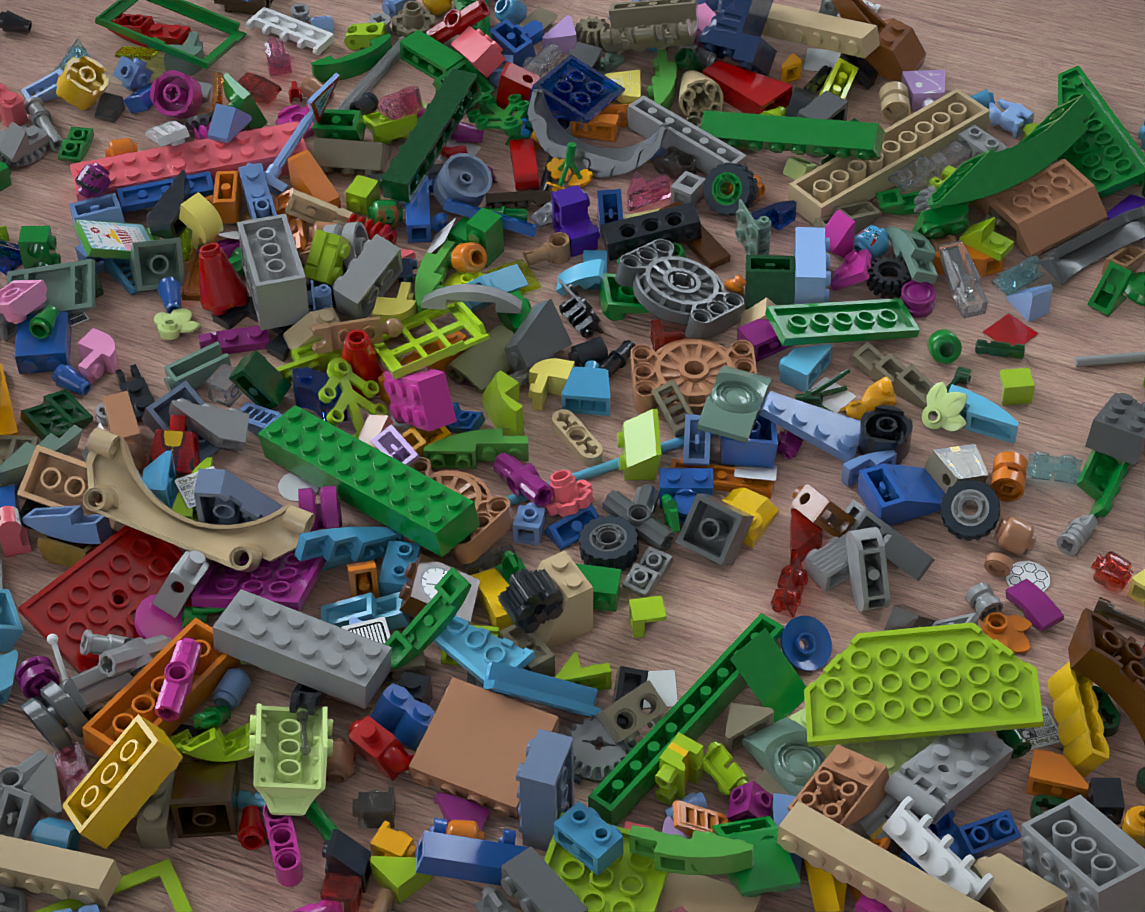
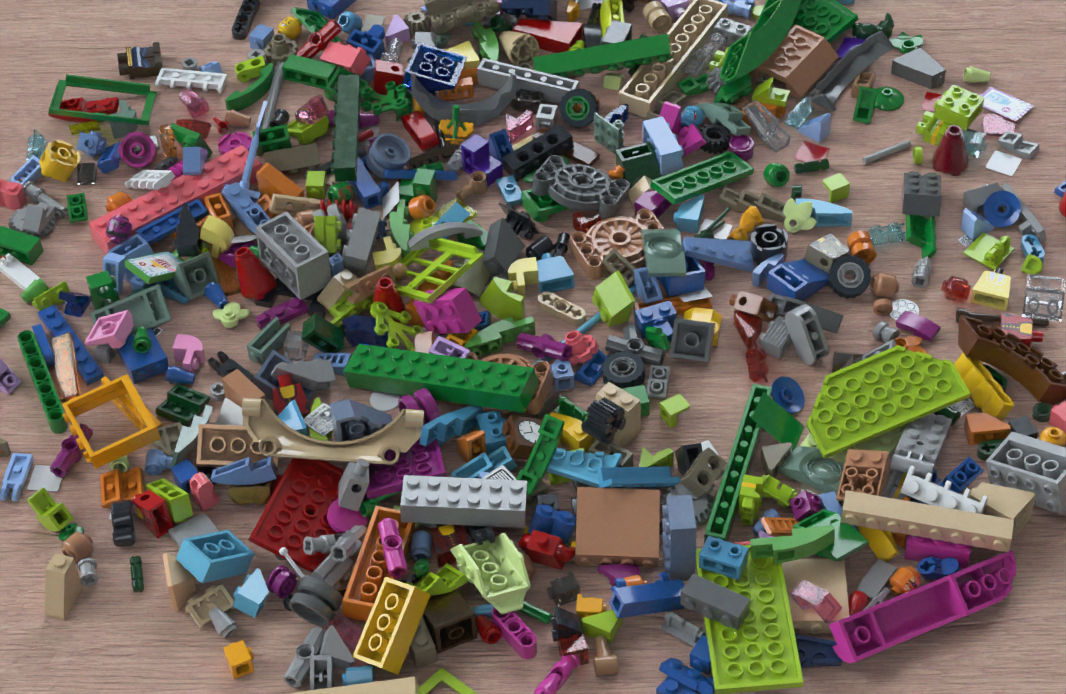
camera: 20 degrees left, 0 degrees up
(63, 228) = (116, 262): none -> light blue slope
(266, 689) = (446, 537): none -> torso
(302, 717) = (486, 547): clear smoke hinge -> none
(582, 274) = (508, 195): medium azure slope -> none

